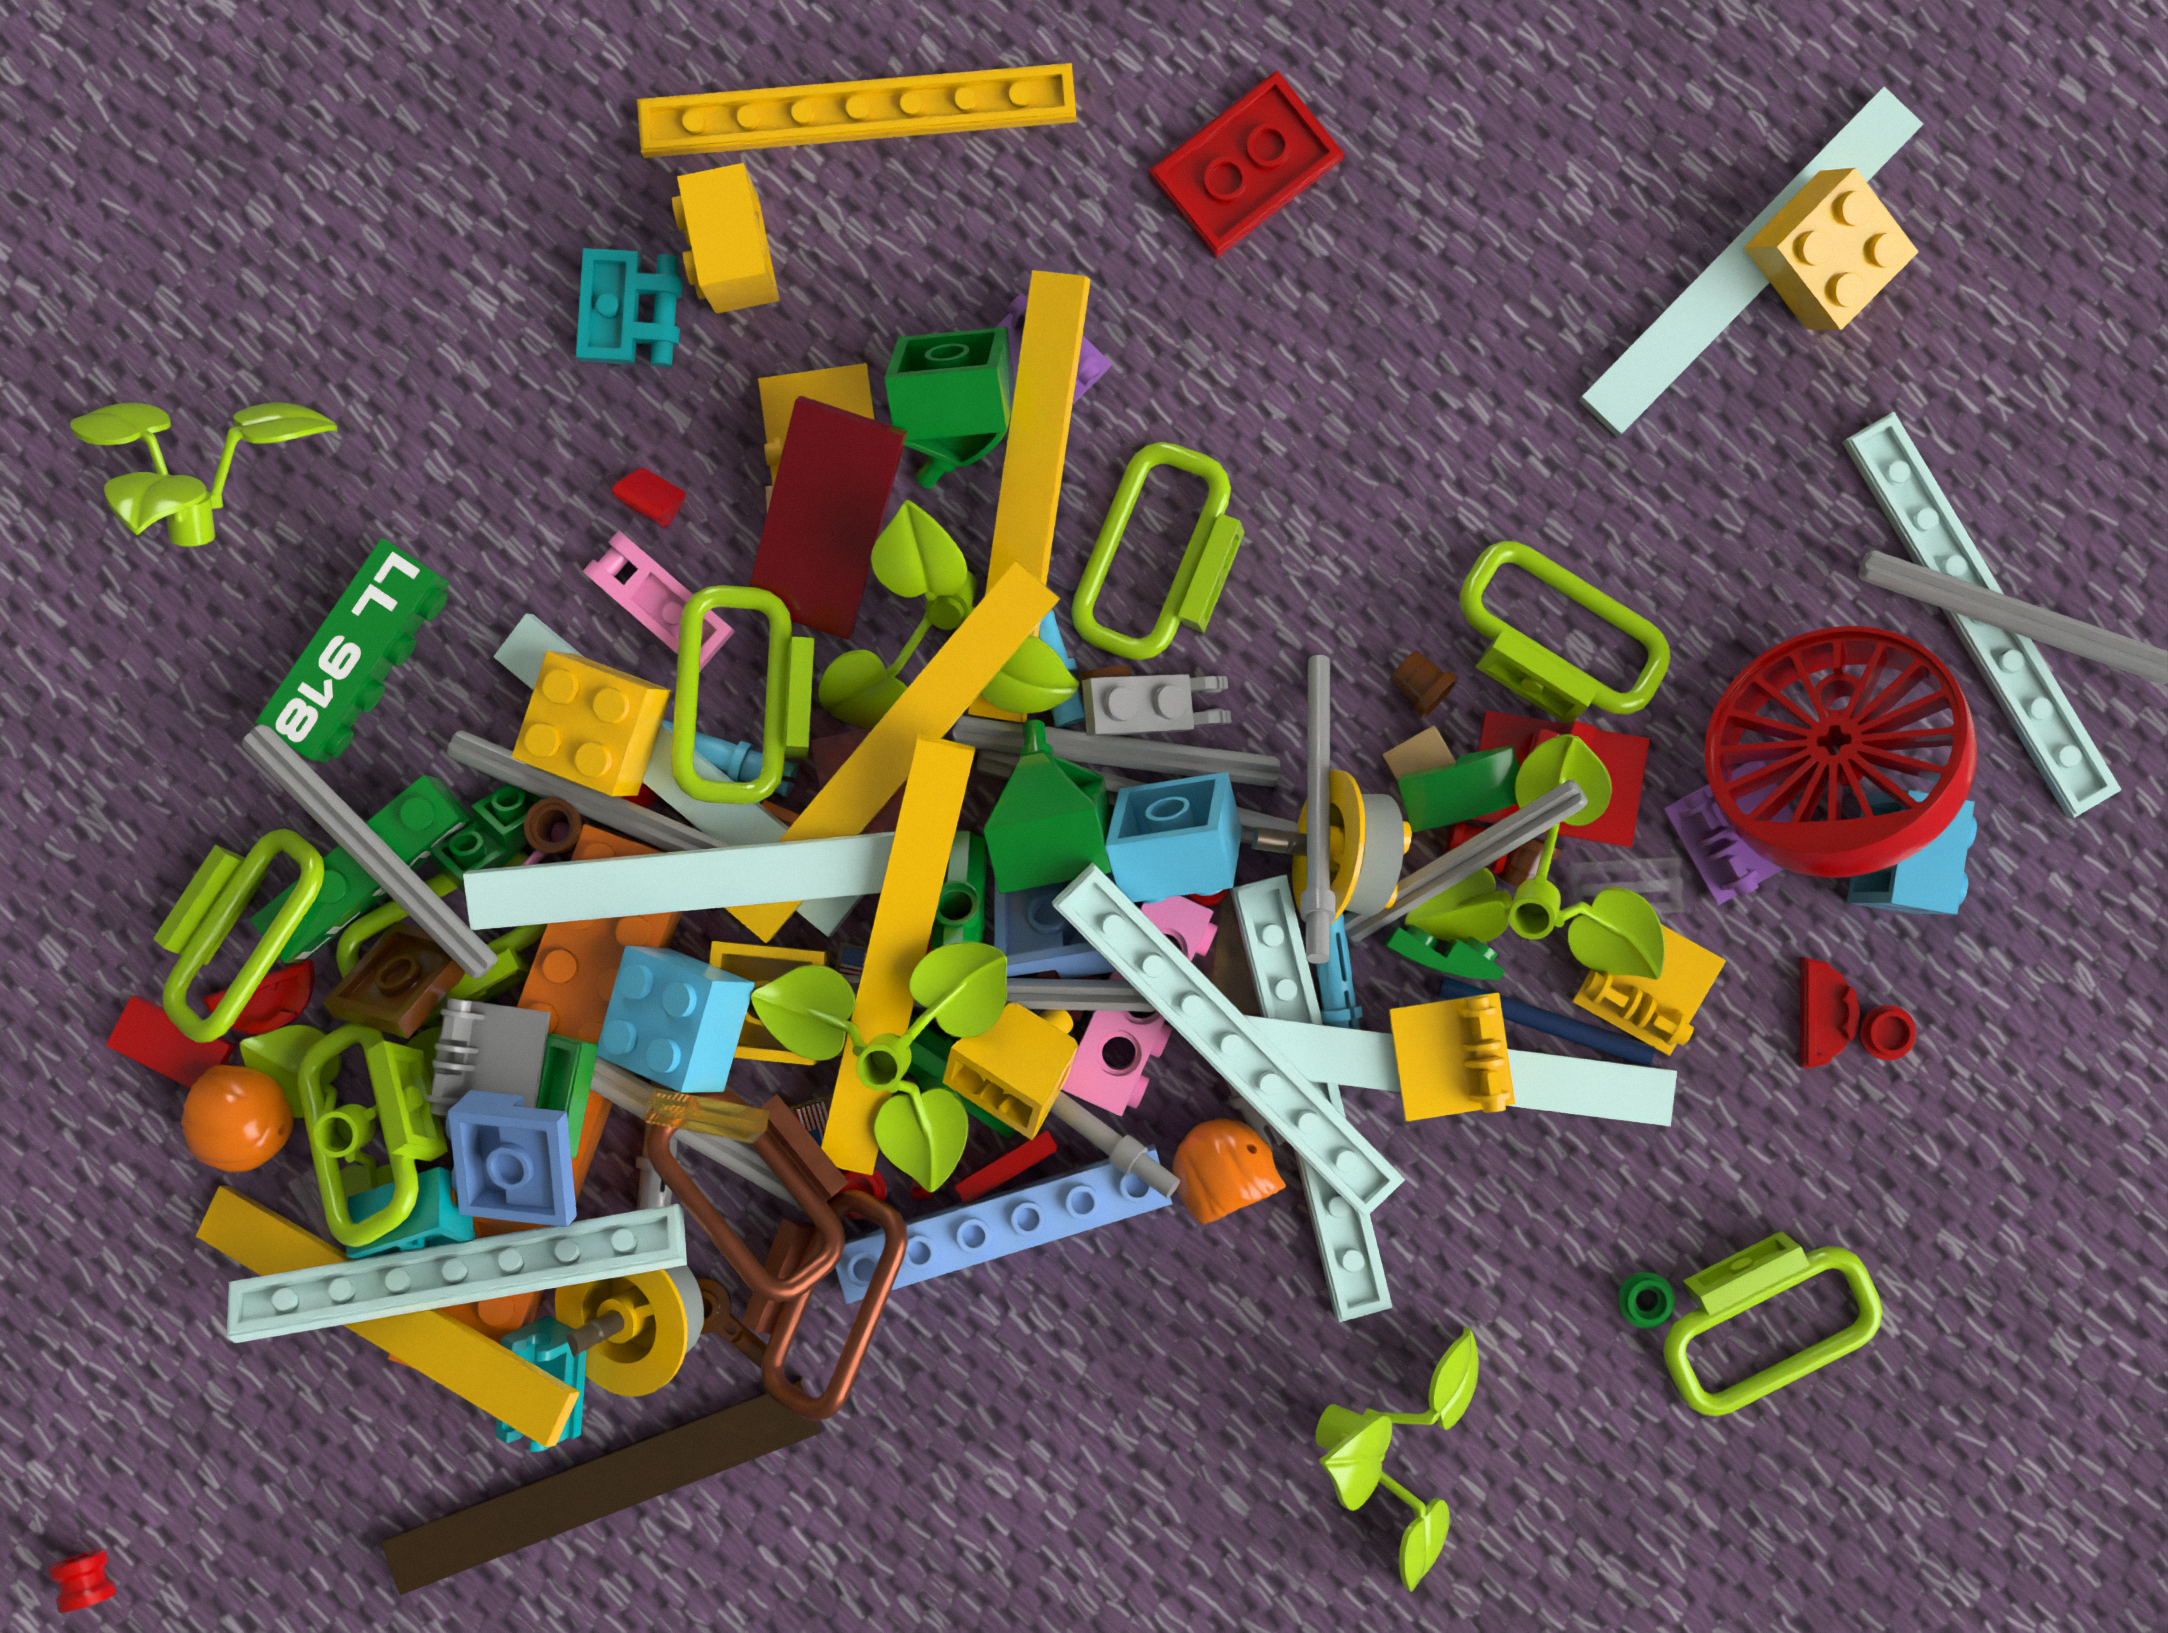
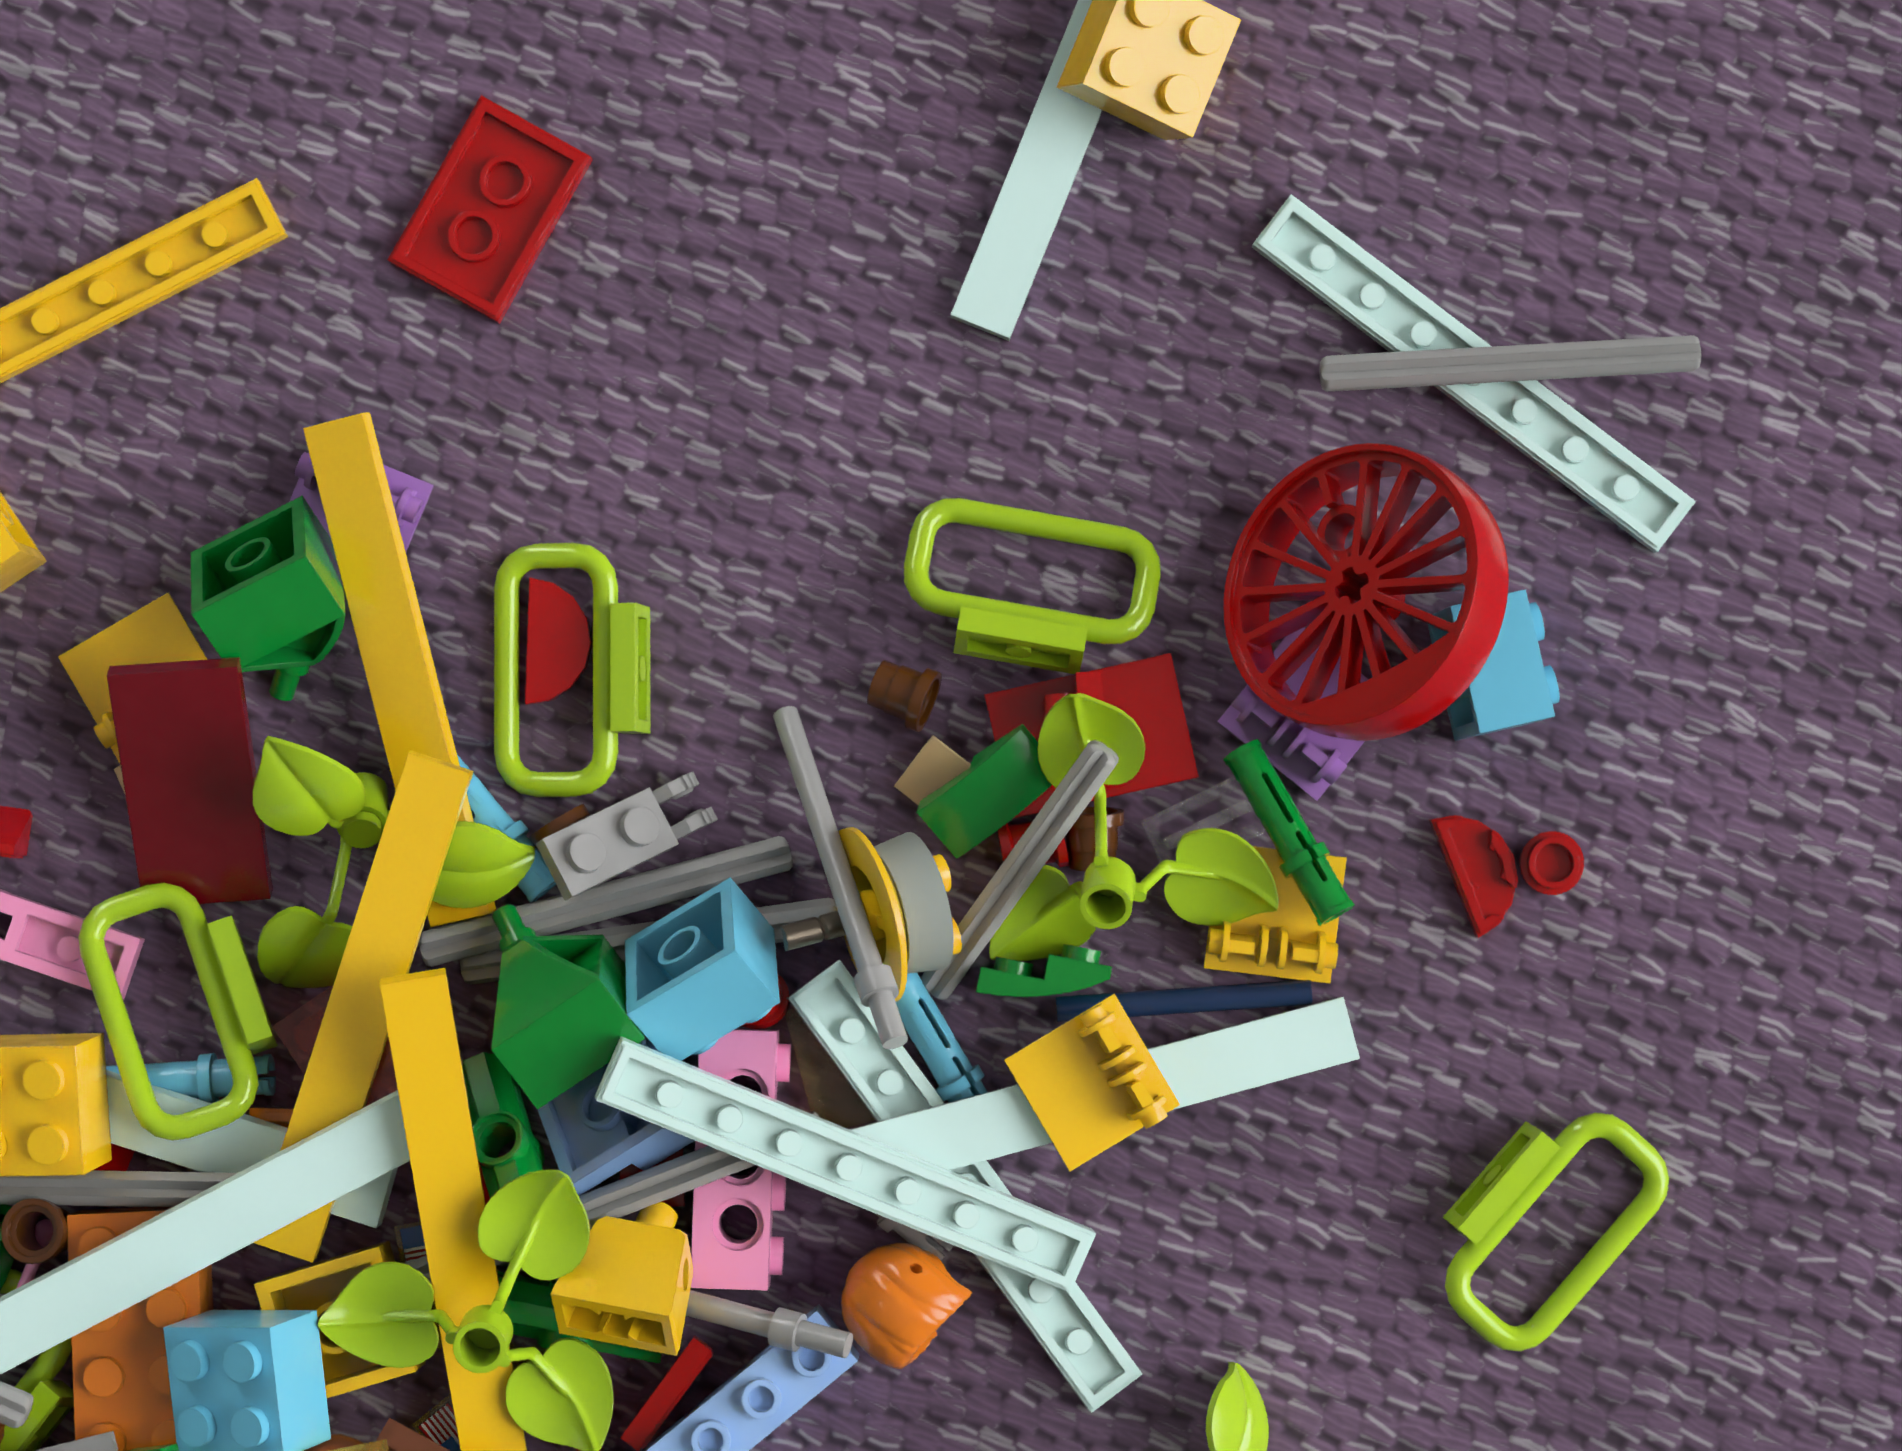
camera: 20 degrees left, 0 degrees up
(1159, 529) = (556, 642): none -> red tile
(1660, 1309) = (1429, 1260): green plate -> none
(1692, 932) = (1289, 833): none -> green pin

